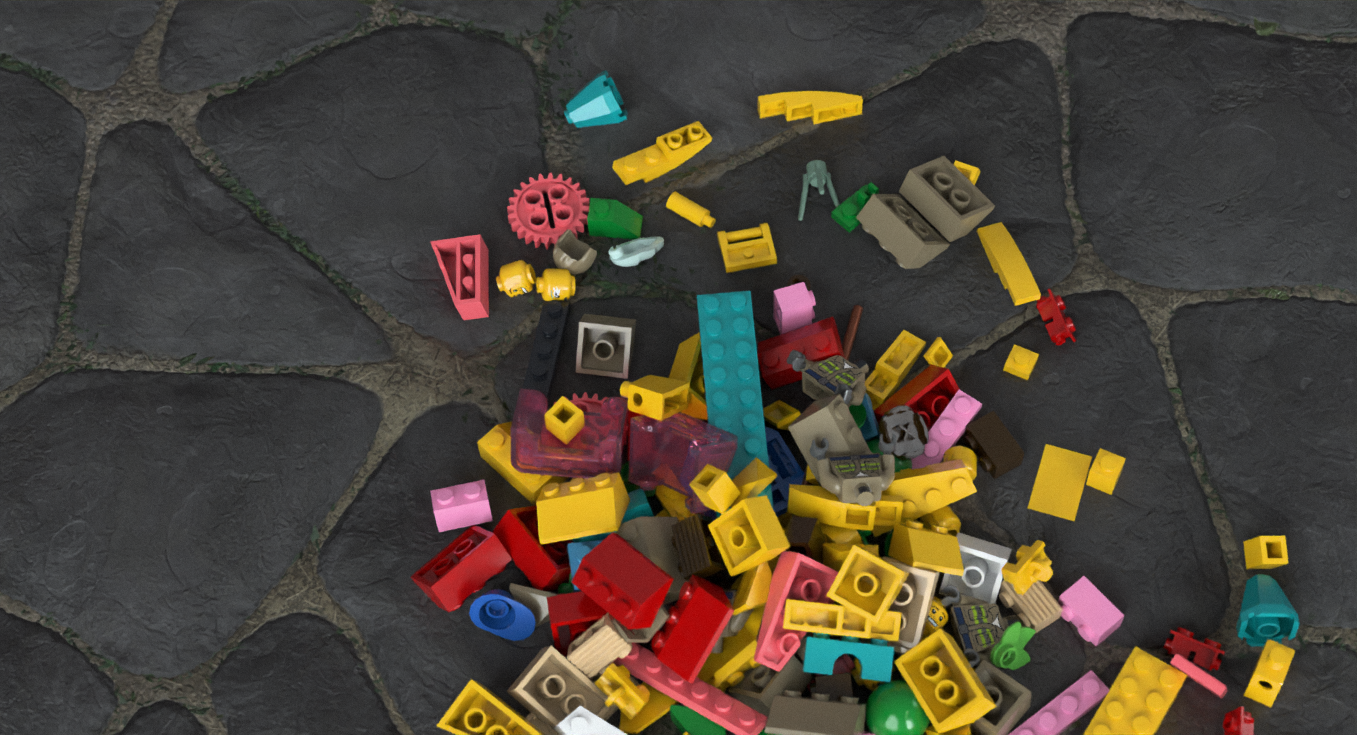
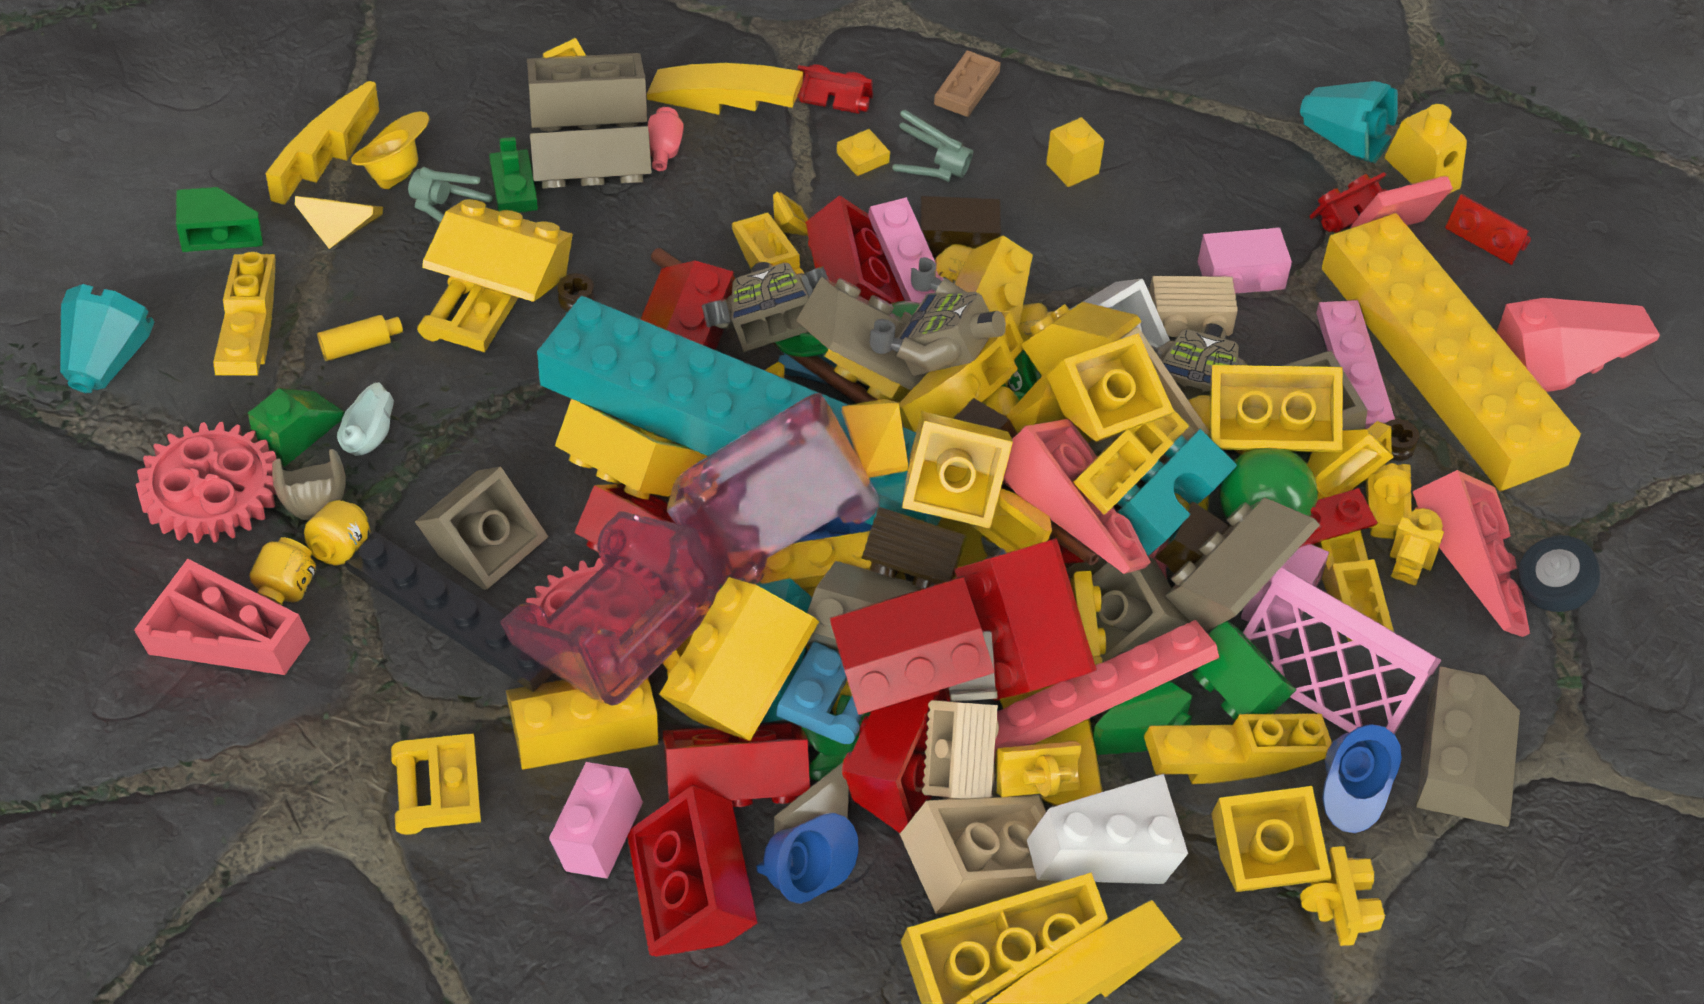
camera: 65 degrees left, 10 degrees down
(446, 430) = (451, 782): none -> yellow plate
(564, 420) = (596, 595): yellow brick -> none
(656, 396) = (662, 472): yellow torso -> none
(714, 95) = (215, 221): none -> green slope
(715, 488) = (874, 453): yellow brick -> none
(765, 144) = (336, 219): none -> yellow slope
(787, 235) = (499, 250): none -> yellow slope
(793, 307) = (618, 284): bright pink brick -> none
(825, 140) = (393, 151): none -> yellow piece
(909, 431) = (889, 279): tile -> none
(945, 257) = (664, 136): none -> coral plant
(1010, 651) = (1255, 350): bright green plate -> none
(1031, 566) = (1178, 256): yellow hips -> none
(1050, 410) = (951, 154): none -> sand green plant
(1059, 482) = (1048, 206): yellow sticker -> none
(1121, 383) = (967, 83): none -> medium nougat plate
(1265, 552) = (1281, 78): yellow brick -> none

